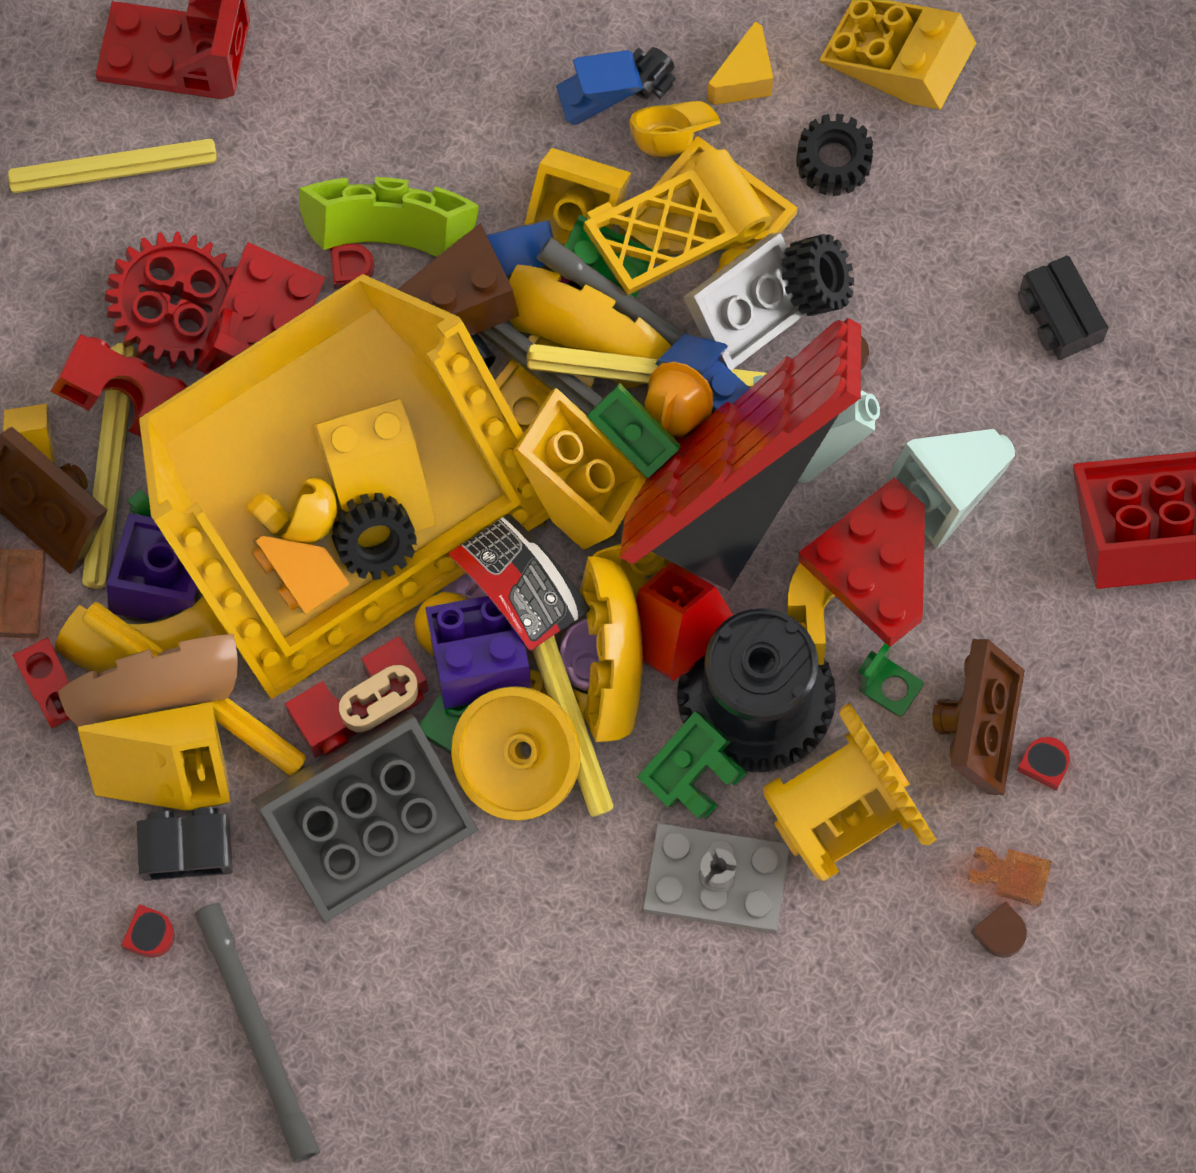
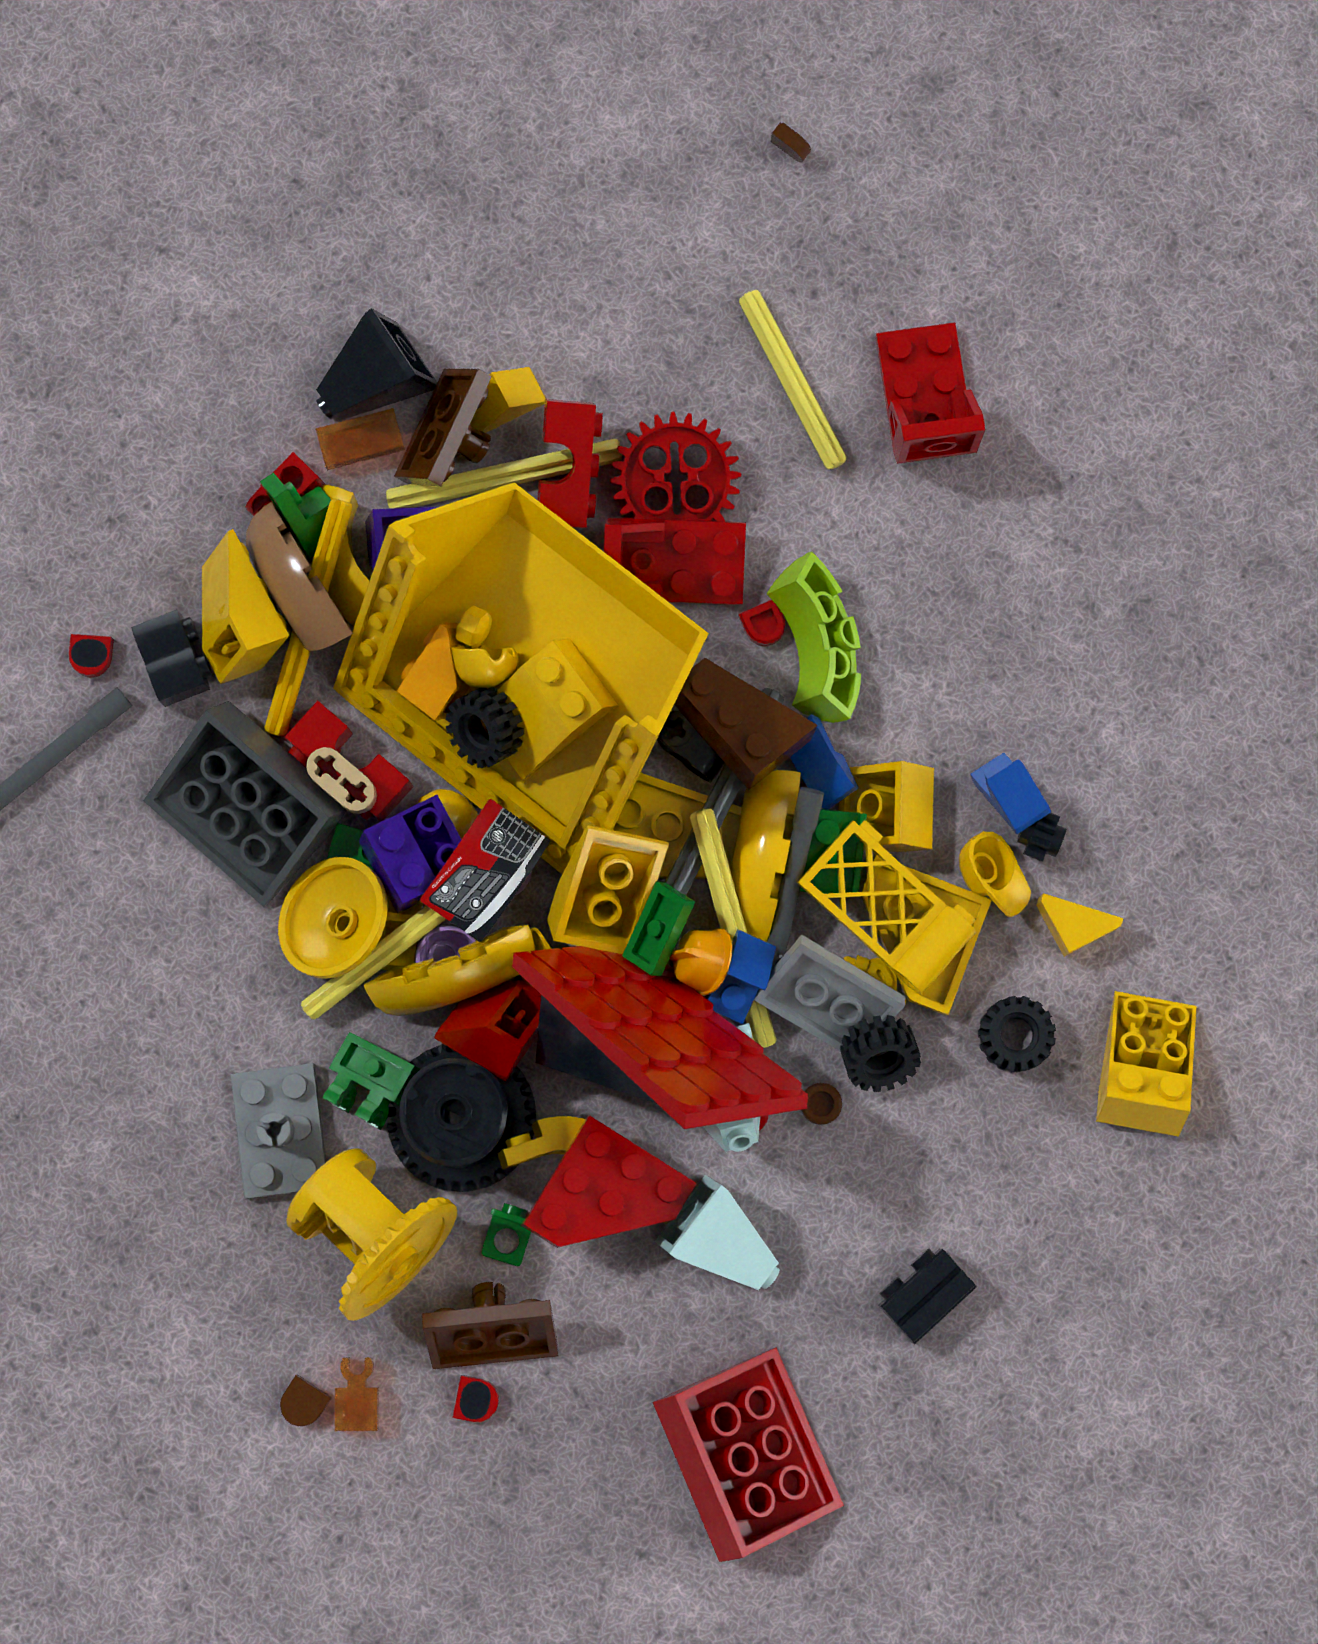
camera: 75 degrees right, 10 degrees up
(77, 654) = (301, 514): none -> green slope

